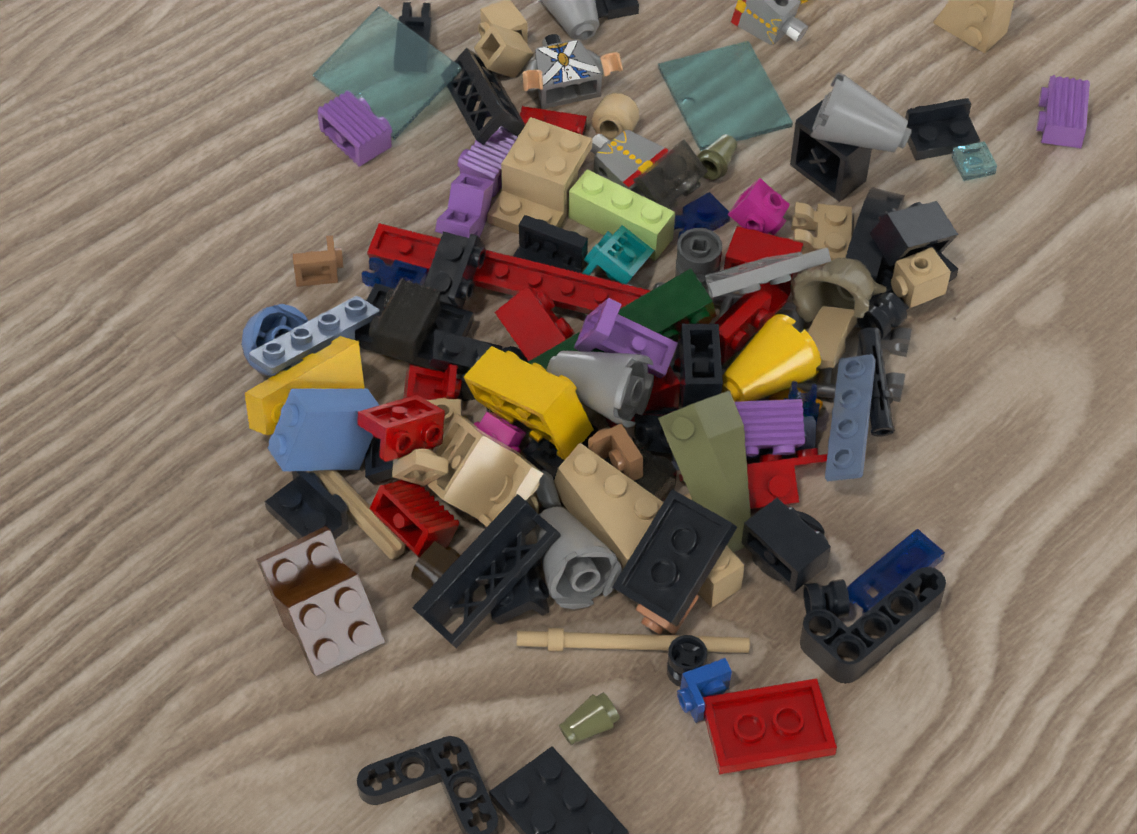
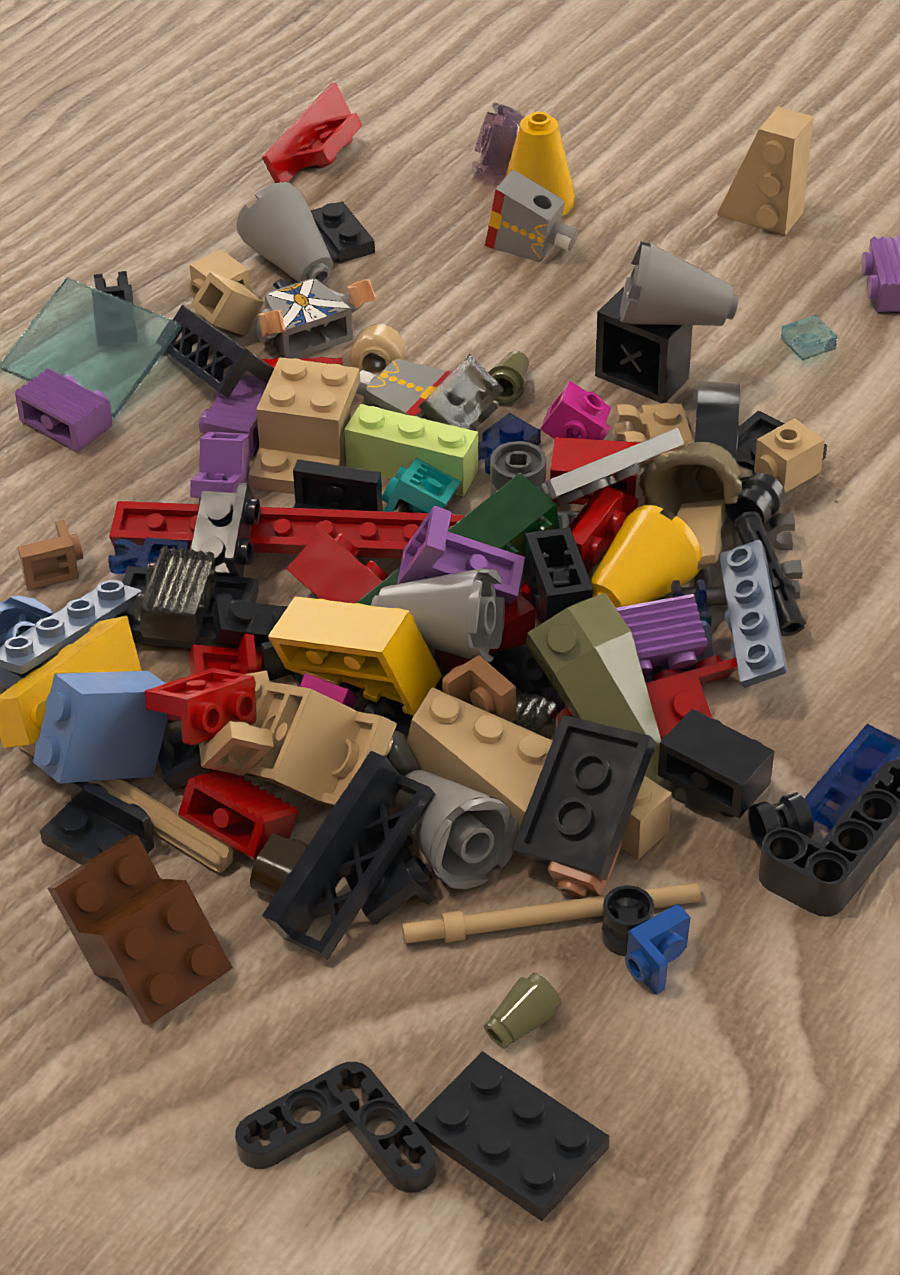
camera: 10 degrees left, 10 degrees down
(724, 94) = (498, 314): clear light blue piece -> none
(768, 726) = (752, 979): red plate -> none
(912, 231) = (765, 404): black brick -> none
(940, 128) = (762, 311): black bracket -> none

